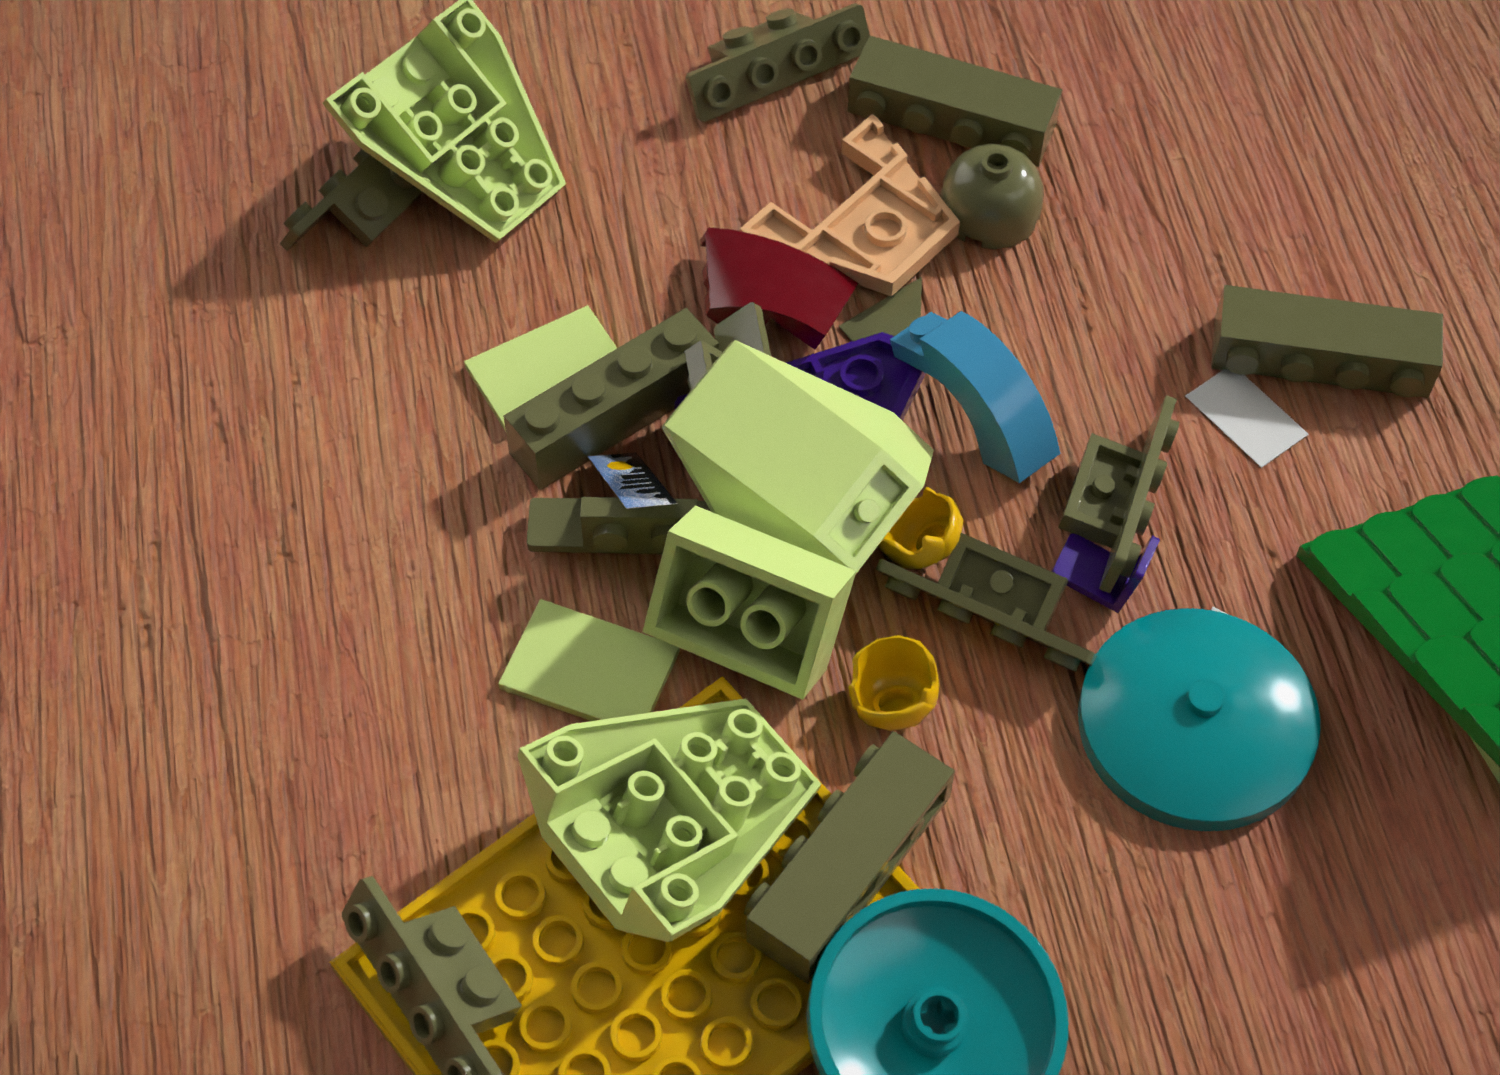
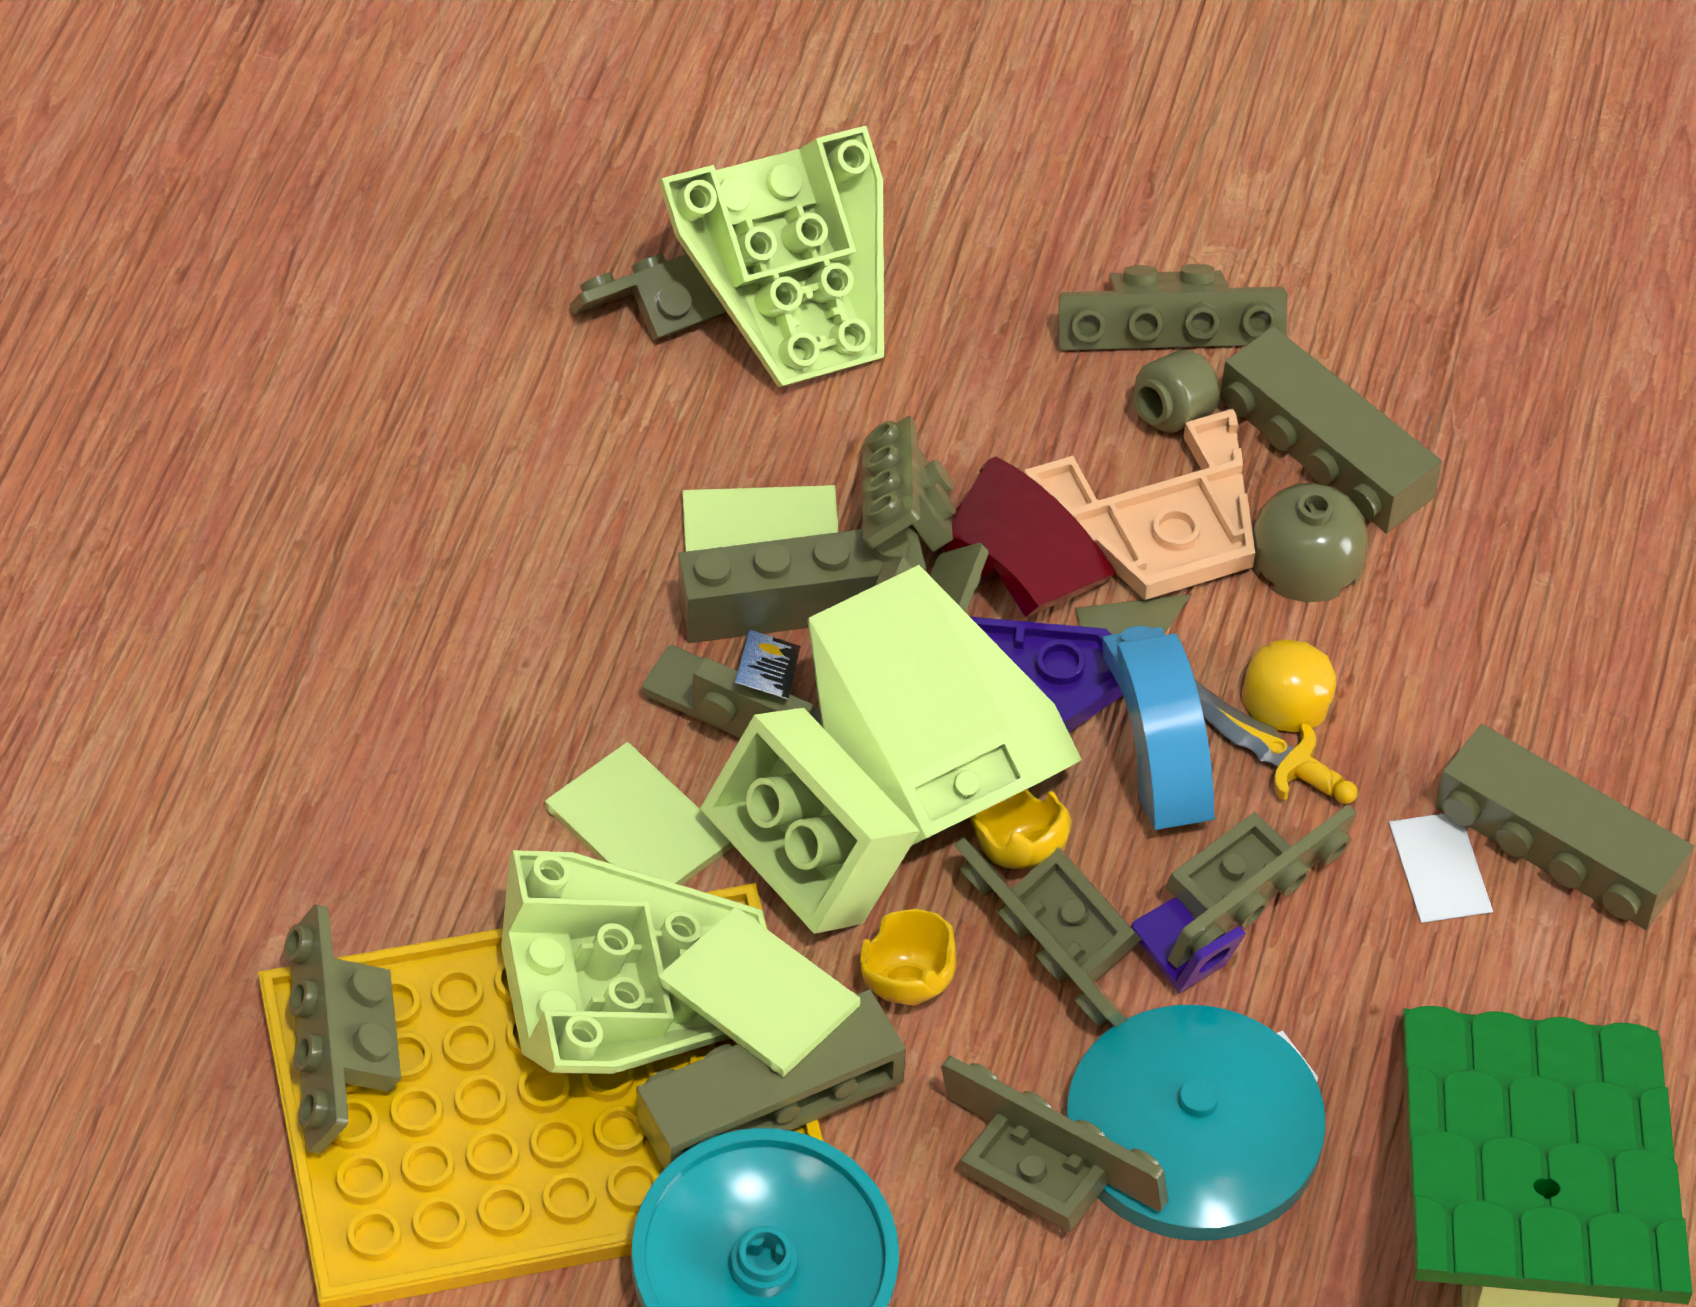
camera: 25 degrees right, 5 degrees down
(655, 285) = (903, 487): none -> olive bracket
(802, 777) = (759, 991): none -> yellowish green piece
(819, 117) = (1176, 390): none -> olive head
(1046, 318) = (1289, 685): none -> yellow hair
(1087, 378) = (1270, 747): none -> piece
(1106, 809) = (1042, 1155): none -> olive bracket

